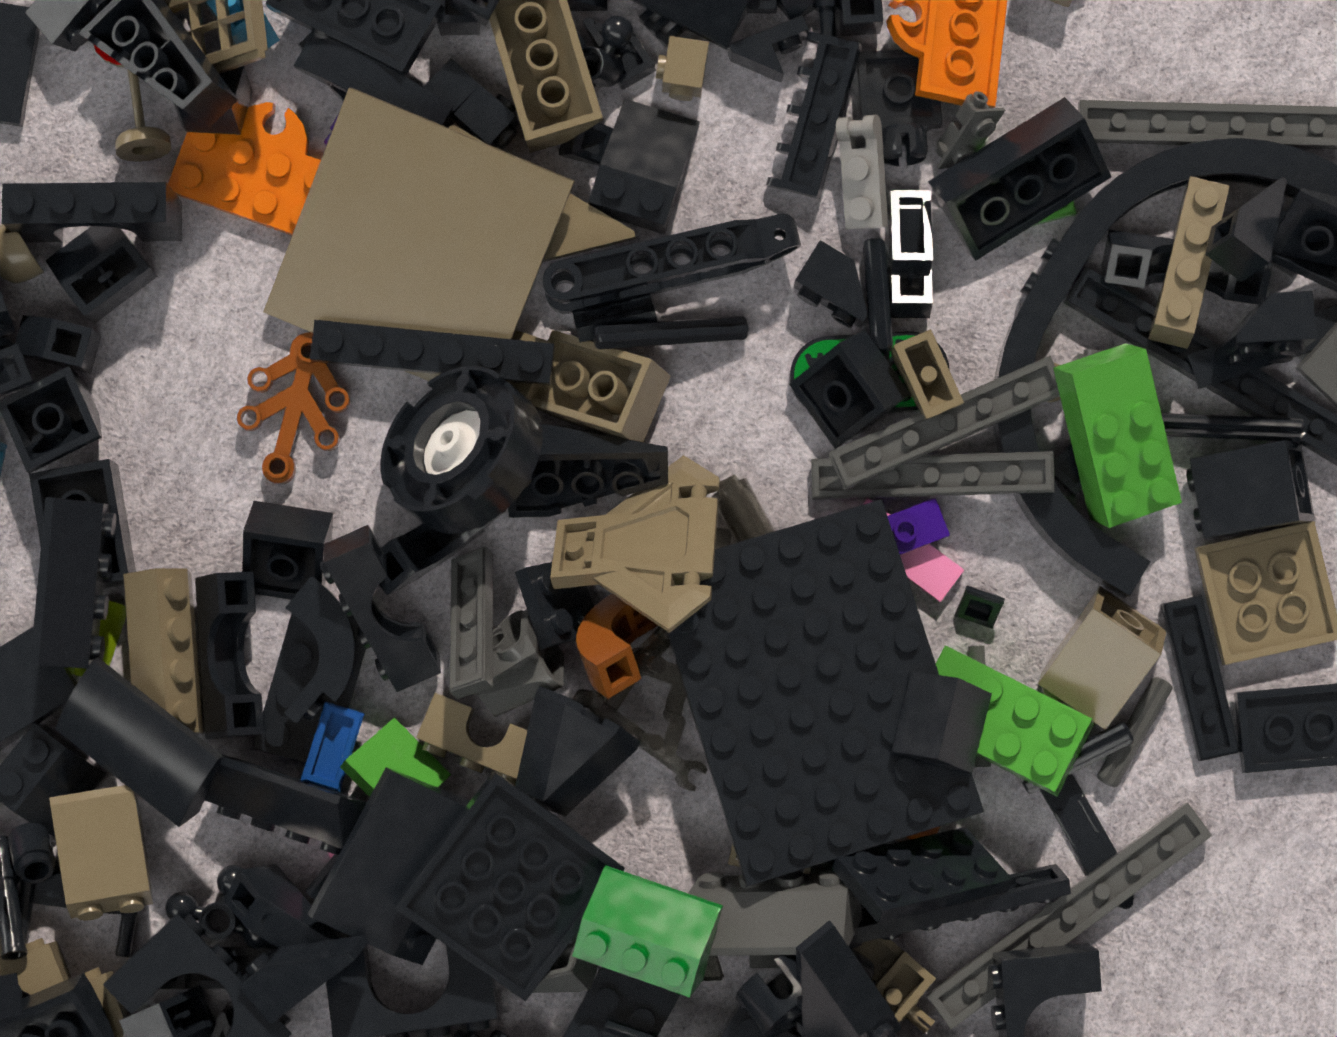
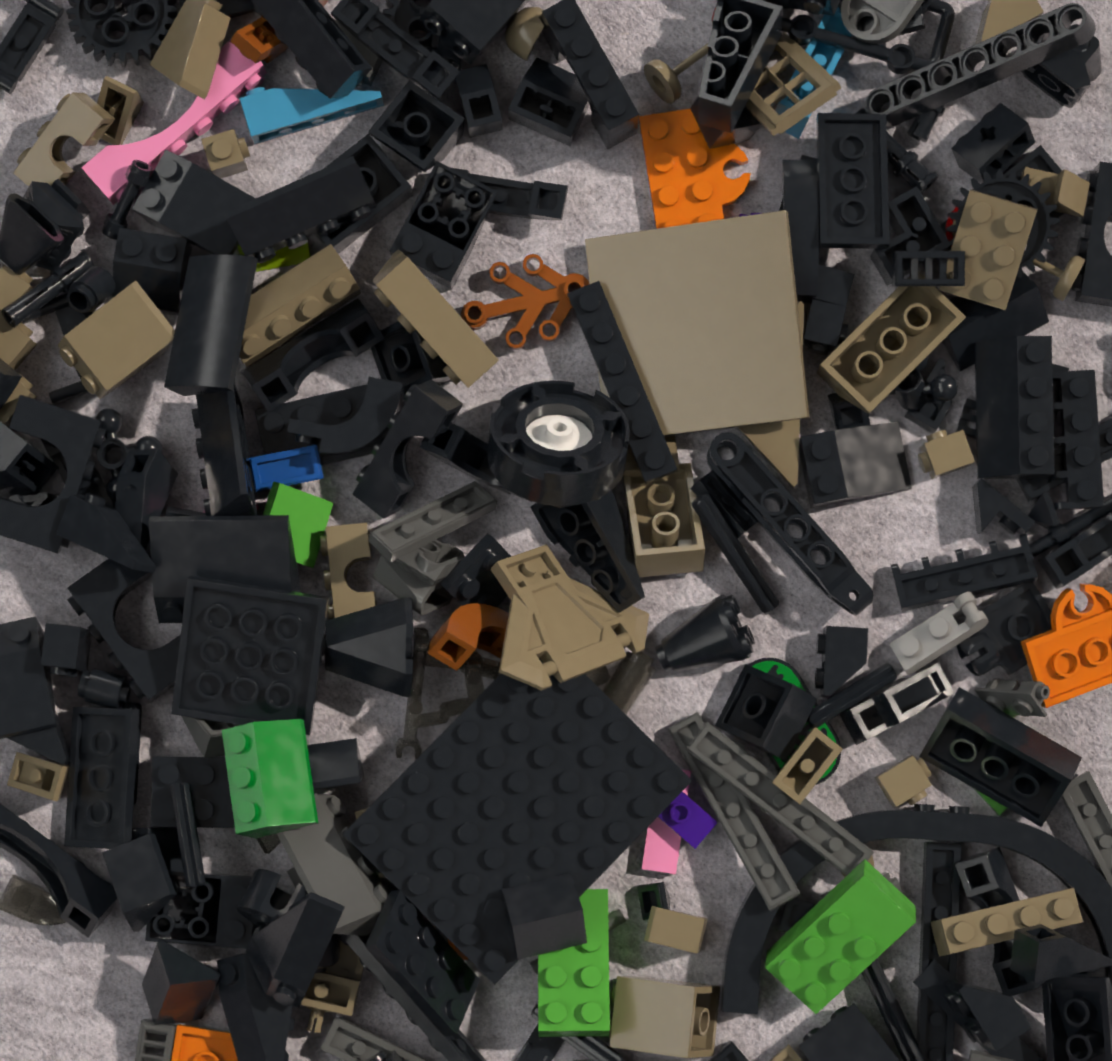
camera: 65 degrees right, 0 degrees up
(167, 376) = (524, 199): none -> black slope
(167, 448) = (444, 224): none -> black slope
(262, 508) = (434, 319): none -> dark tan slope
(668, 857) = (335, 763): none -> black slope
(742, 407) = (707, 638): none -> black cone
(993, 288) = (905, 781): none -> dark tan brick
(1022, 598) = (675, 929): none -> dark tan slope

